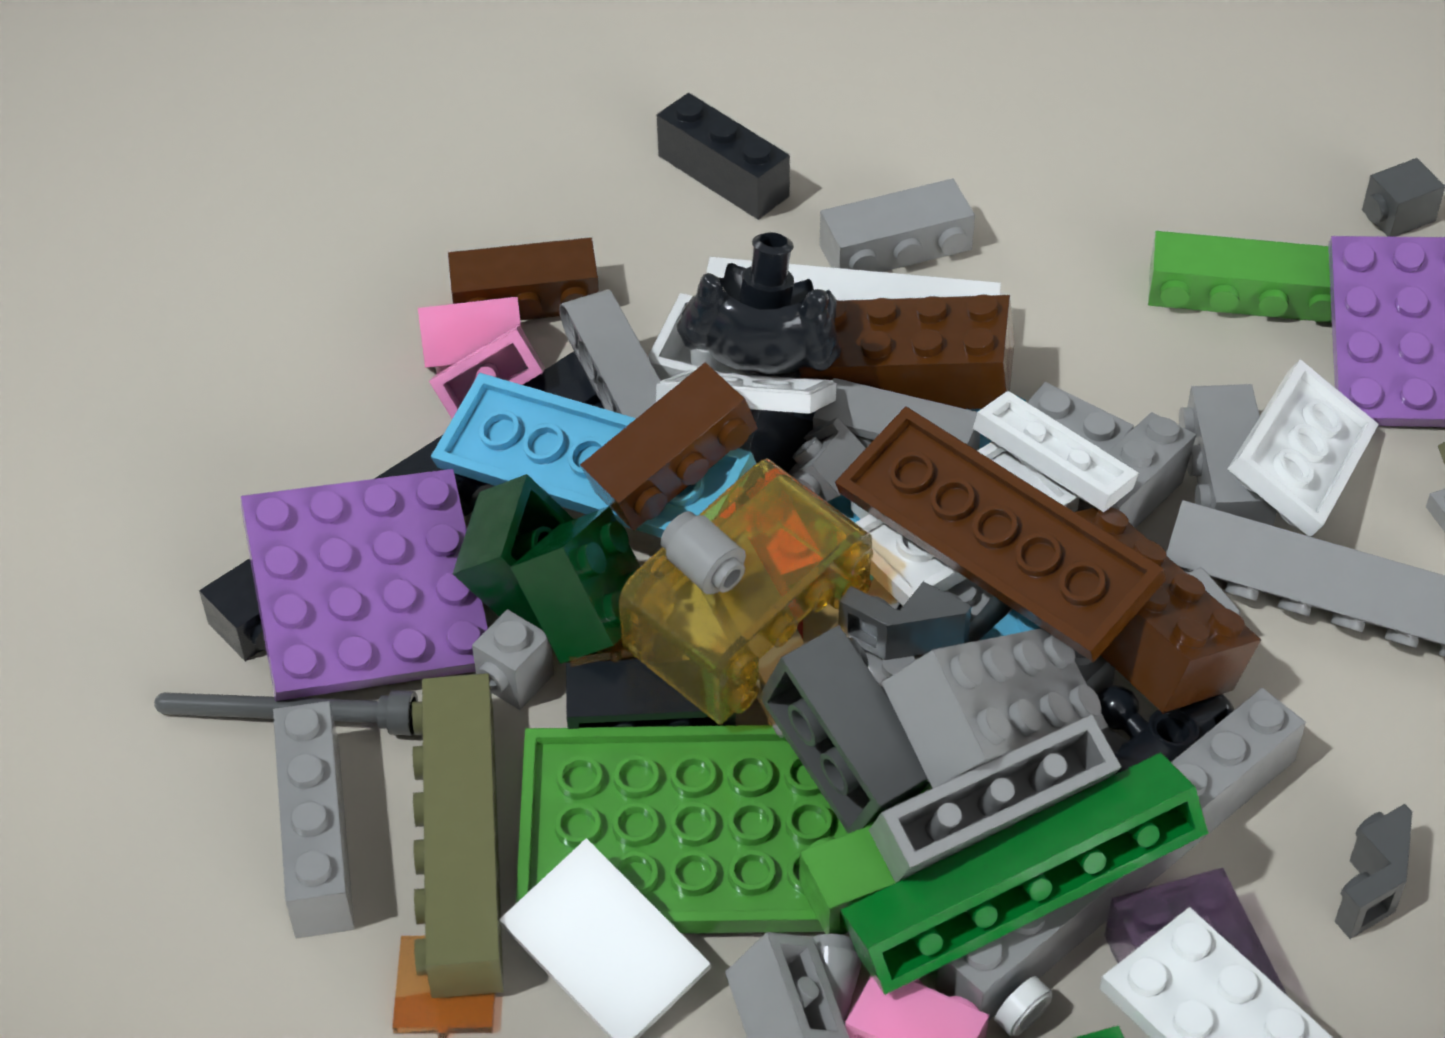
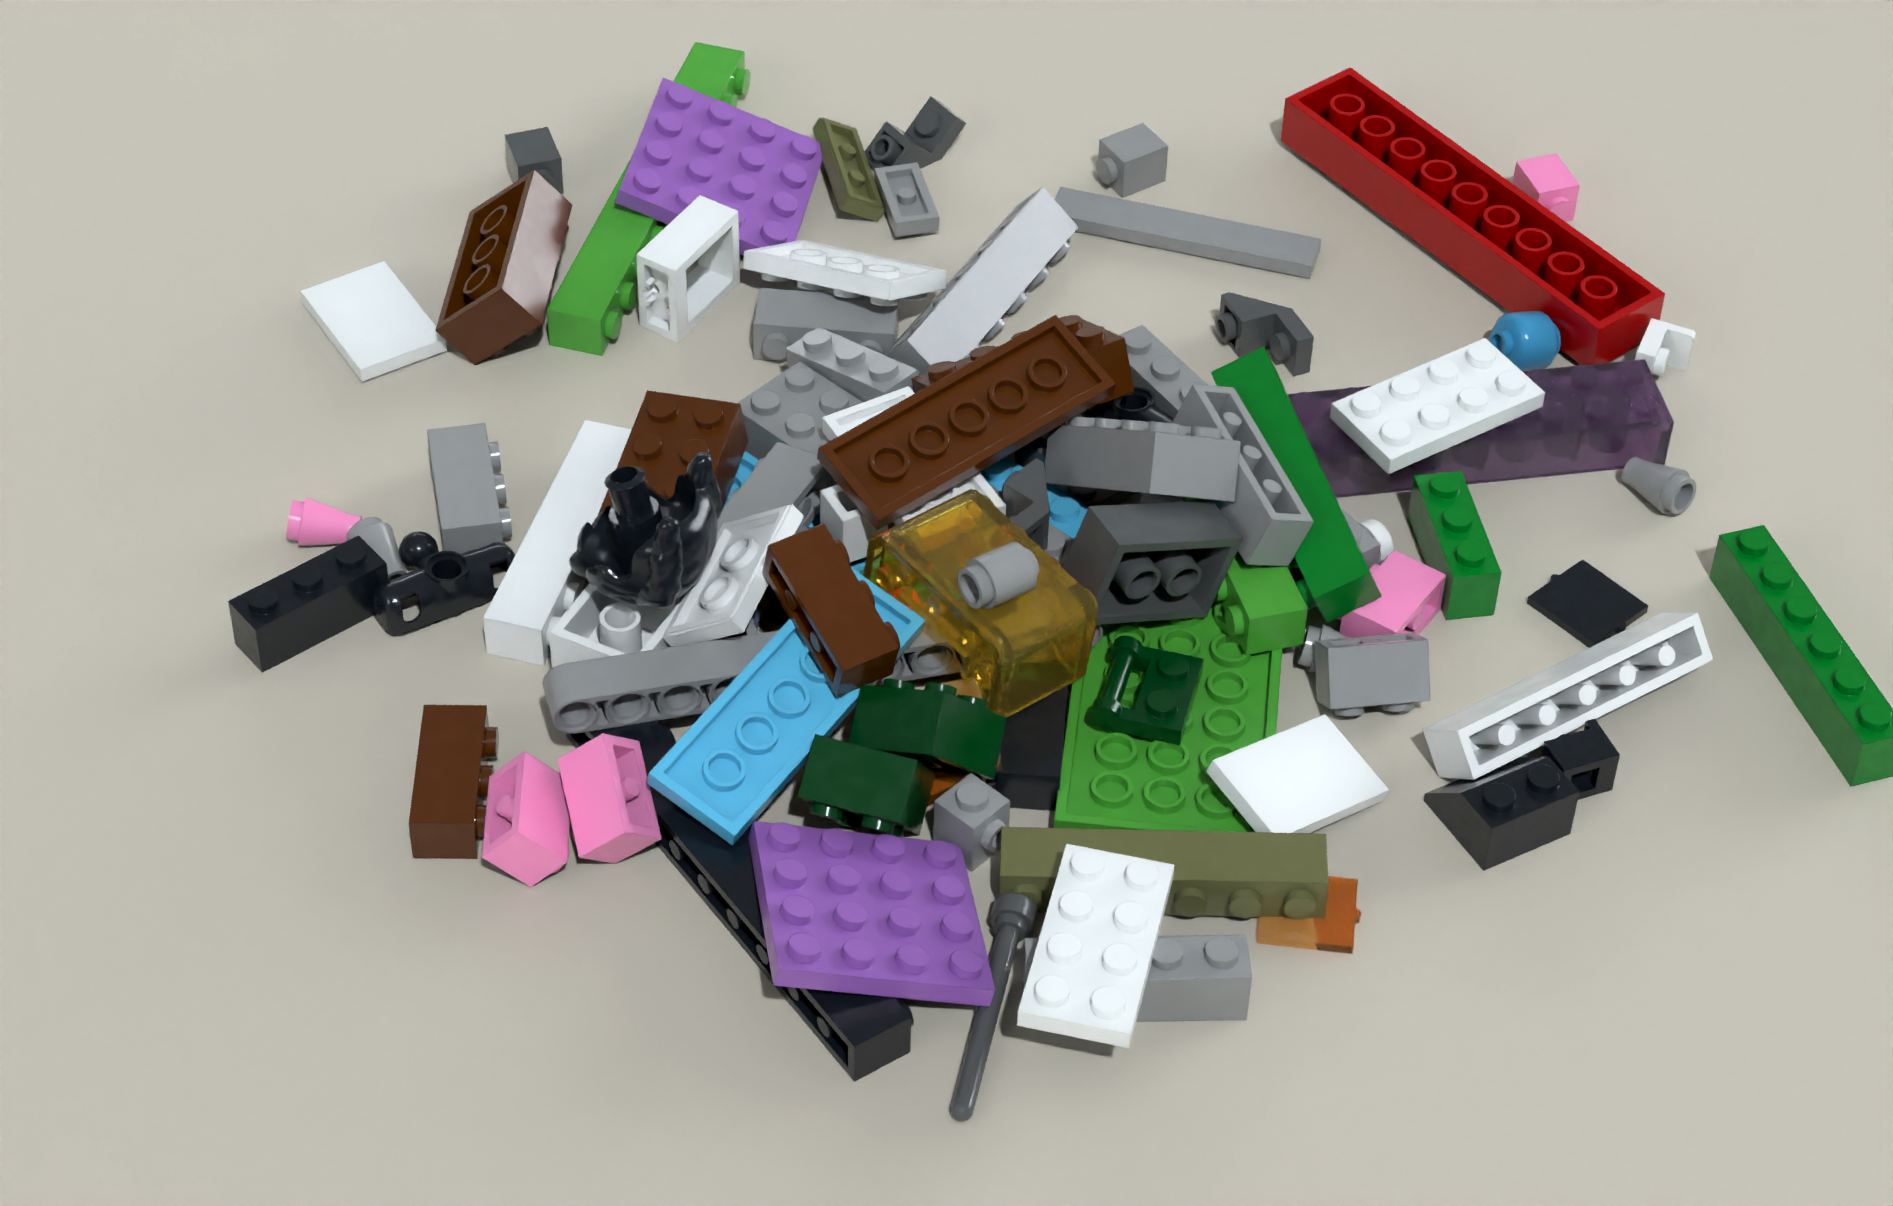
camera: 85 degrees left, 5 degrees down
(302, 749) = (1096, 946): none -> white plate
(711, 803) = (1163, 697): none -> dark green plate
(756, 218) = (442, 580): none -> black piece
(807, 188) = (382, 541): none -> light grey cone
(833, 144) = (318, 523): none -> bright pink cone
(1055, 451) = (867, 382): white plate -> none
(1130, 136) = (373, 321): none -> white tile
(1206, 188) = (504, 268): none -> reddish brown brick
(1270, 296) = (699, 232): none -> white window

